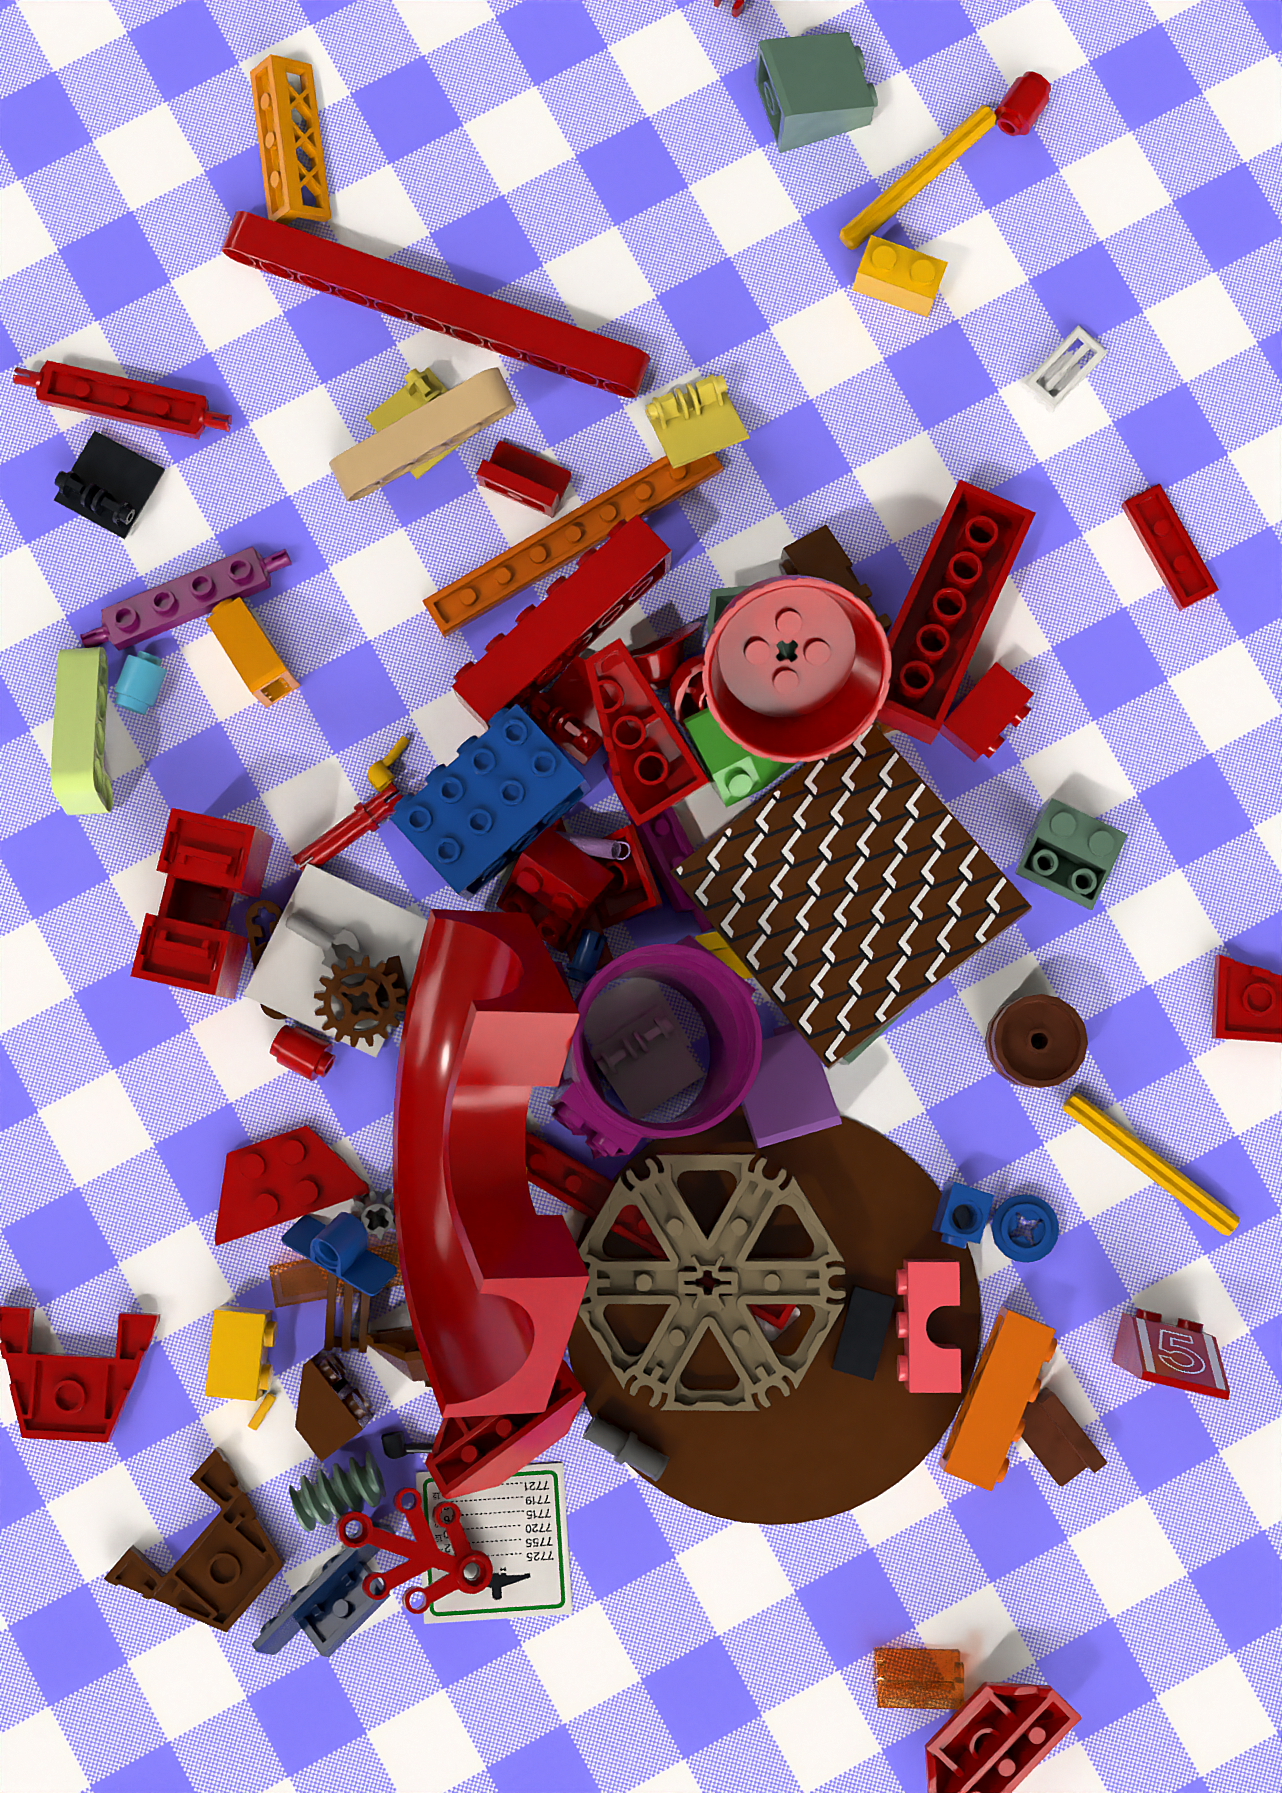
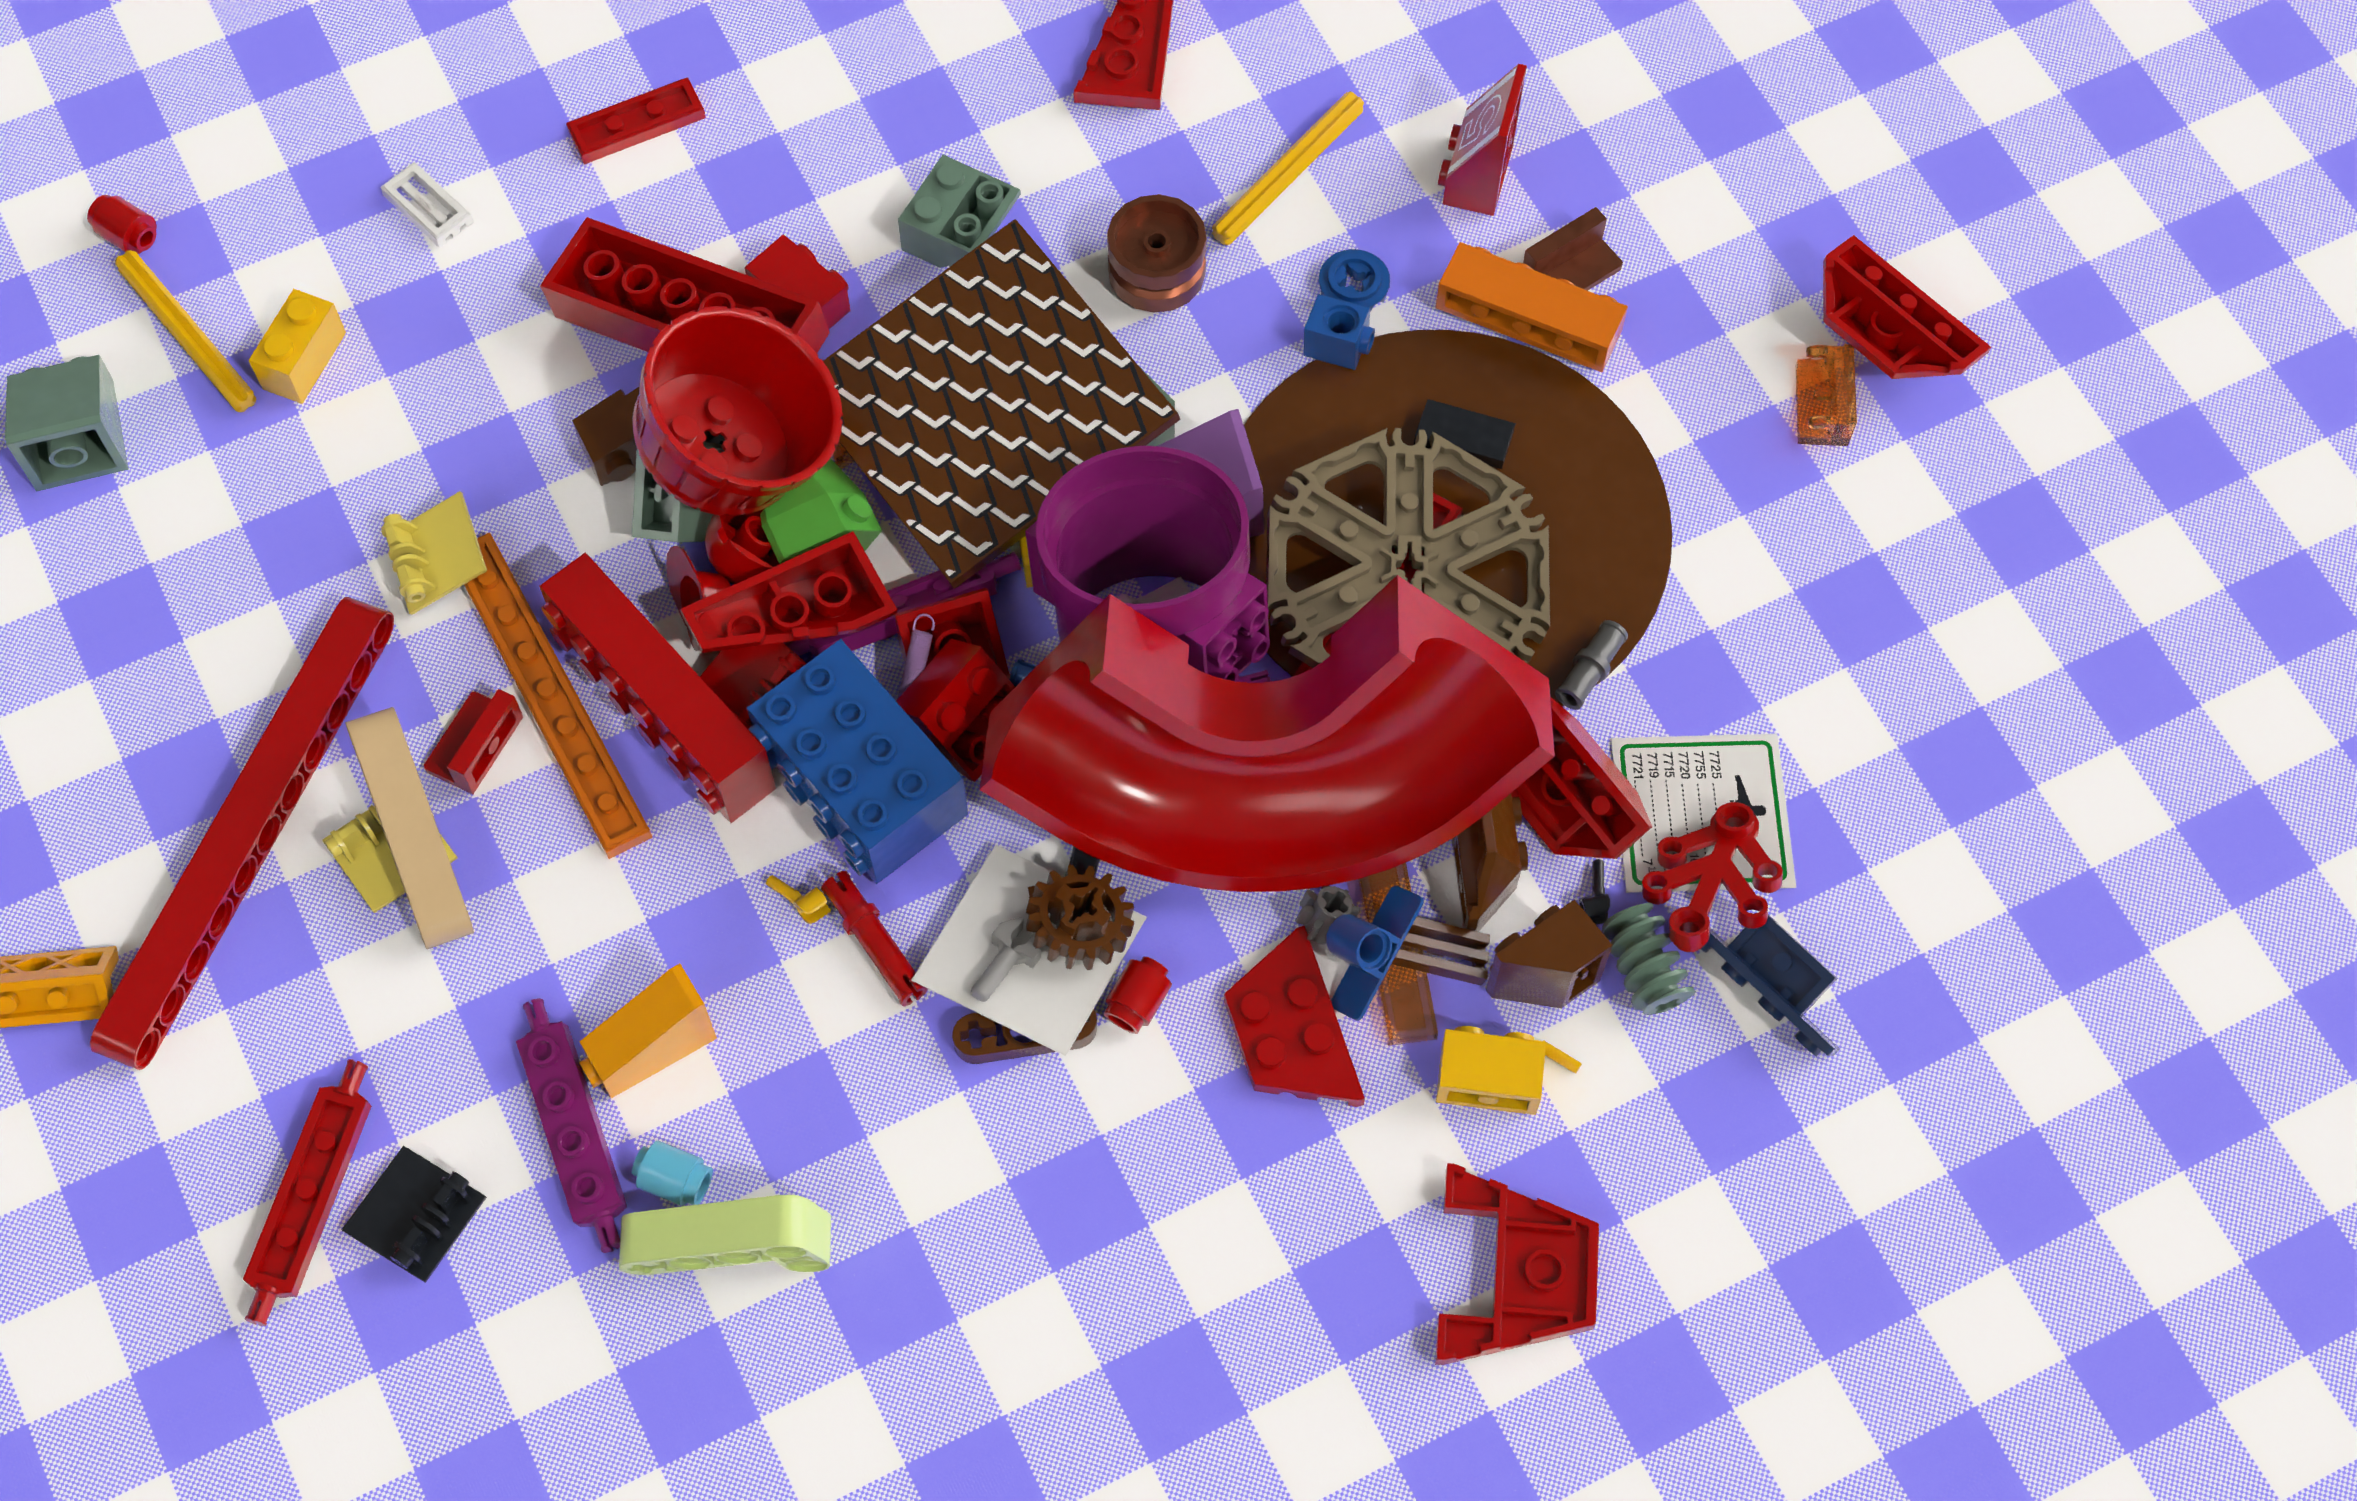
camera: 90 degrees left, 20 degrees down
(204, 867) = (900, 1082): red piece -> none
(224, 1564) = (1739, 1097): reddish brown wing -> none
(924, 1287) = (1420, 372): coral arch -> none

